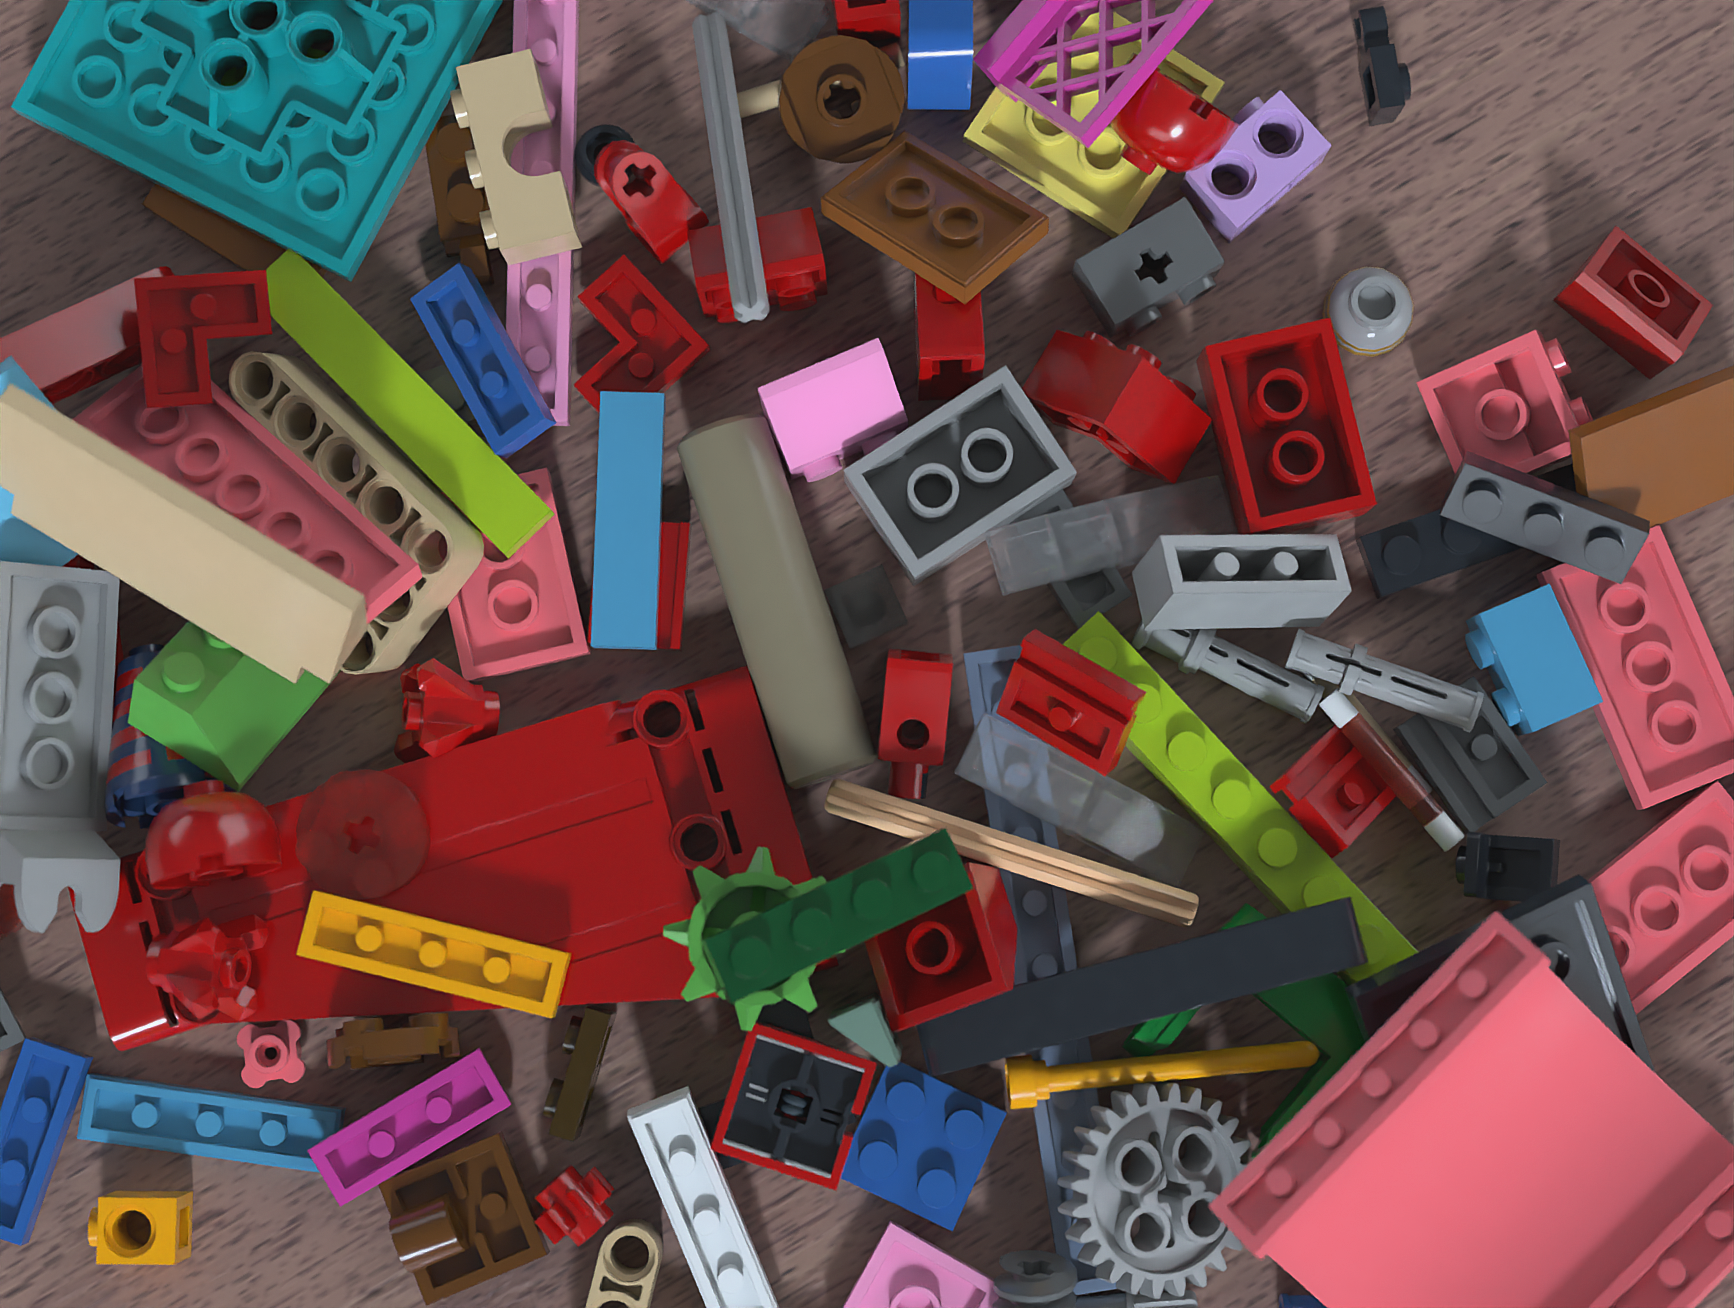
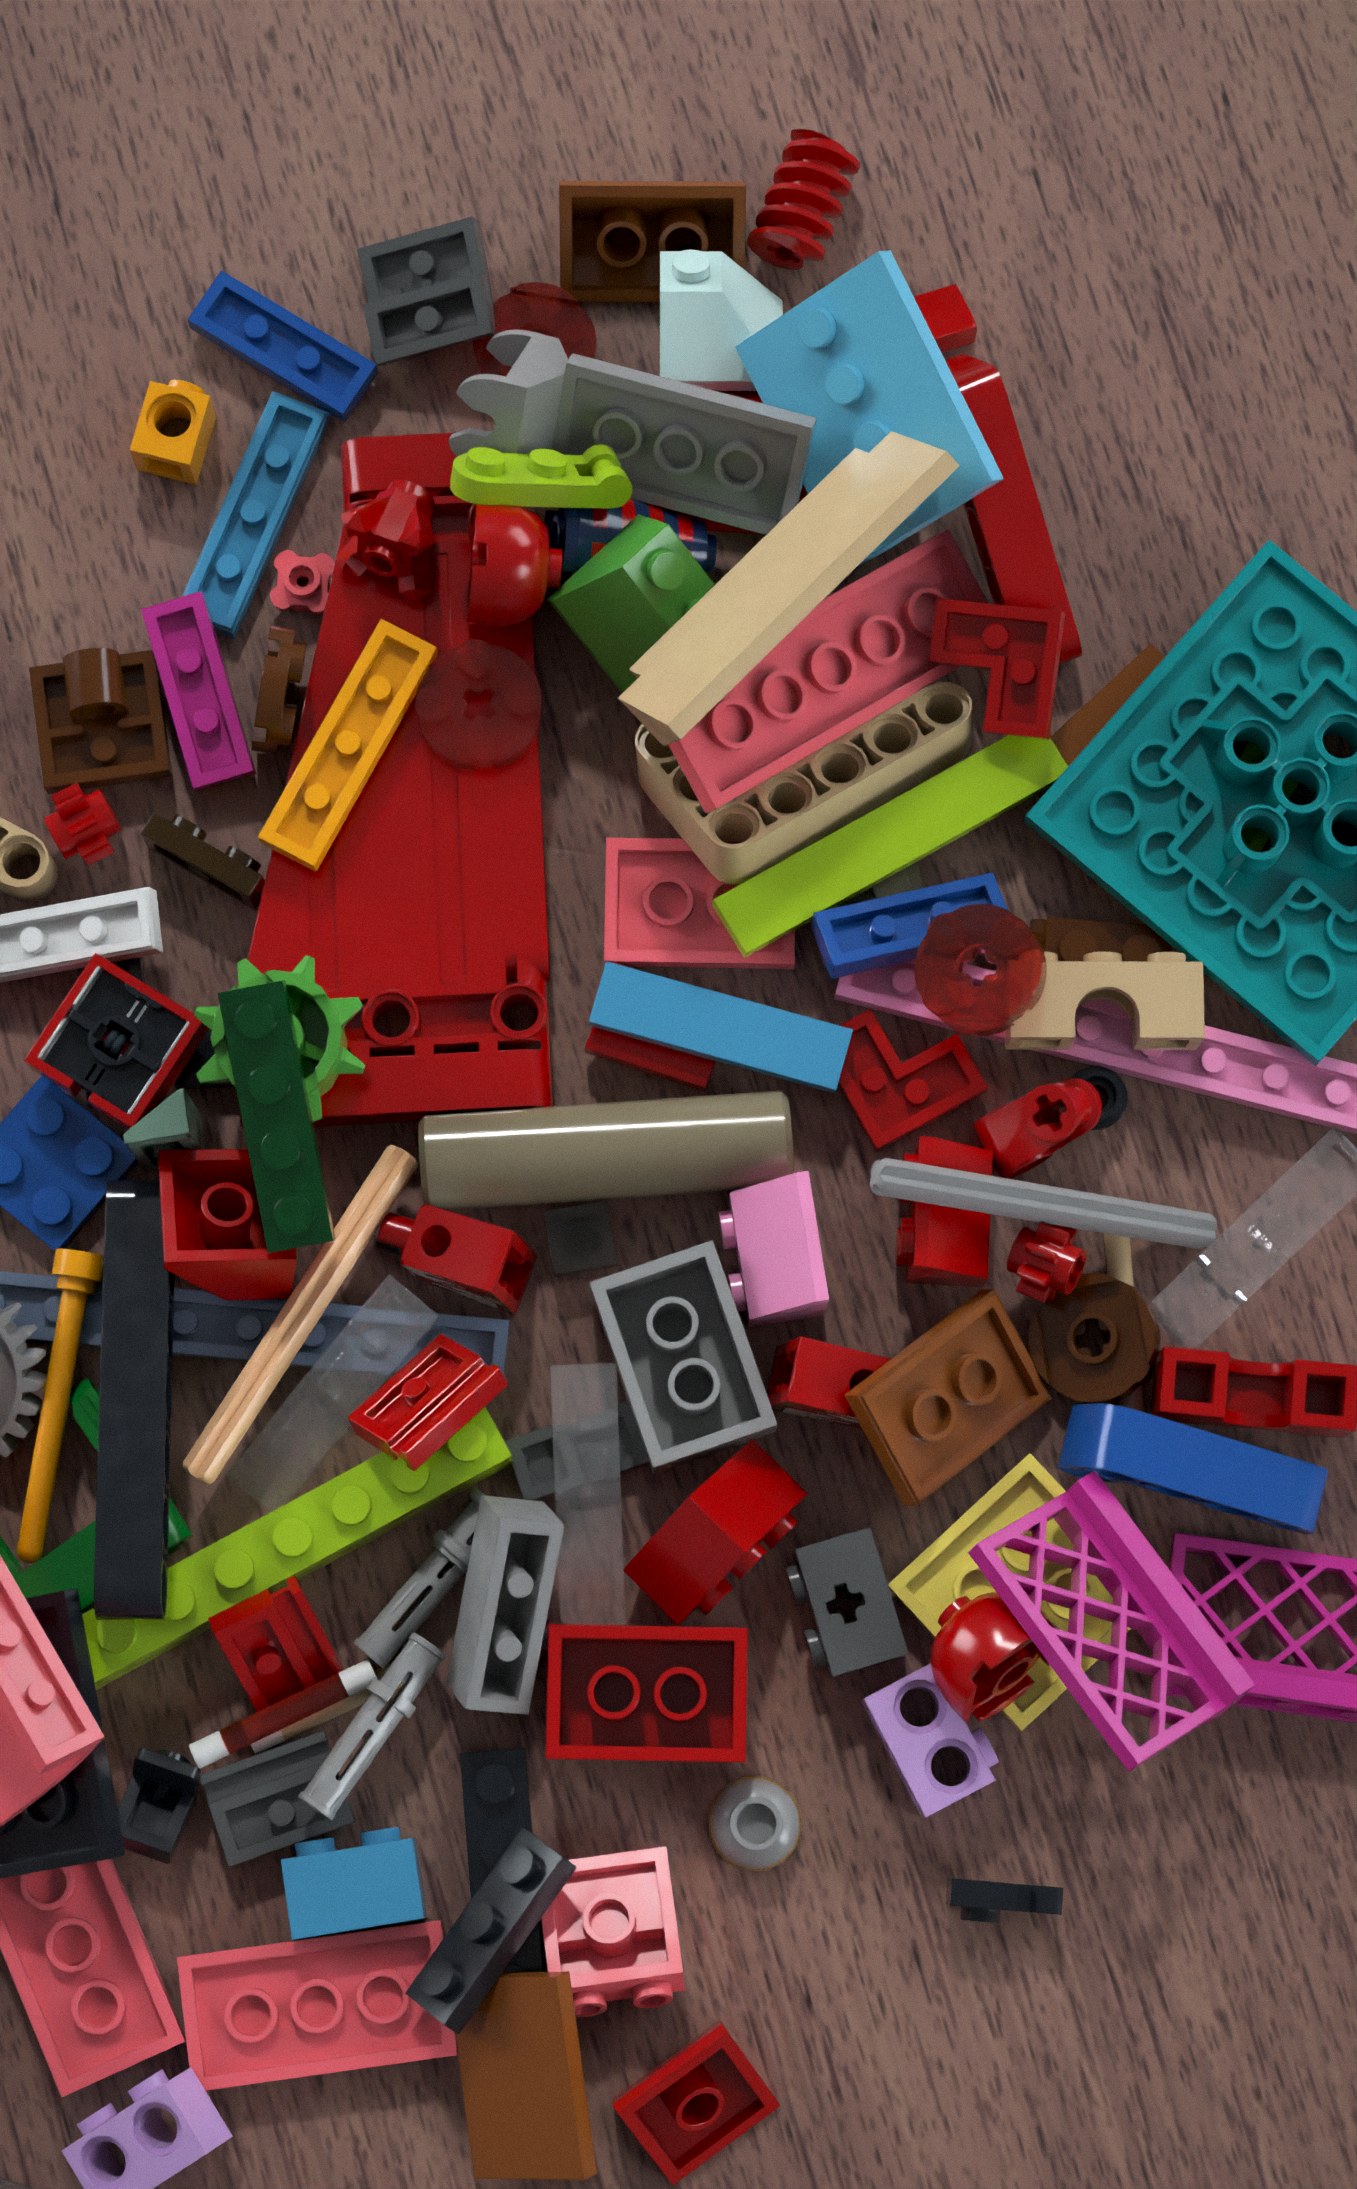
camera: 100 degrees right, 5 degrees down
(114, 824) = (541, 478): none -> lime plate
(442, 712) = (579, 811): red rock -> none
(538, 245) = (1005, 996): none -> clear red plate
(781, 155) = (1046, 1261): none -> red gear

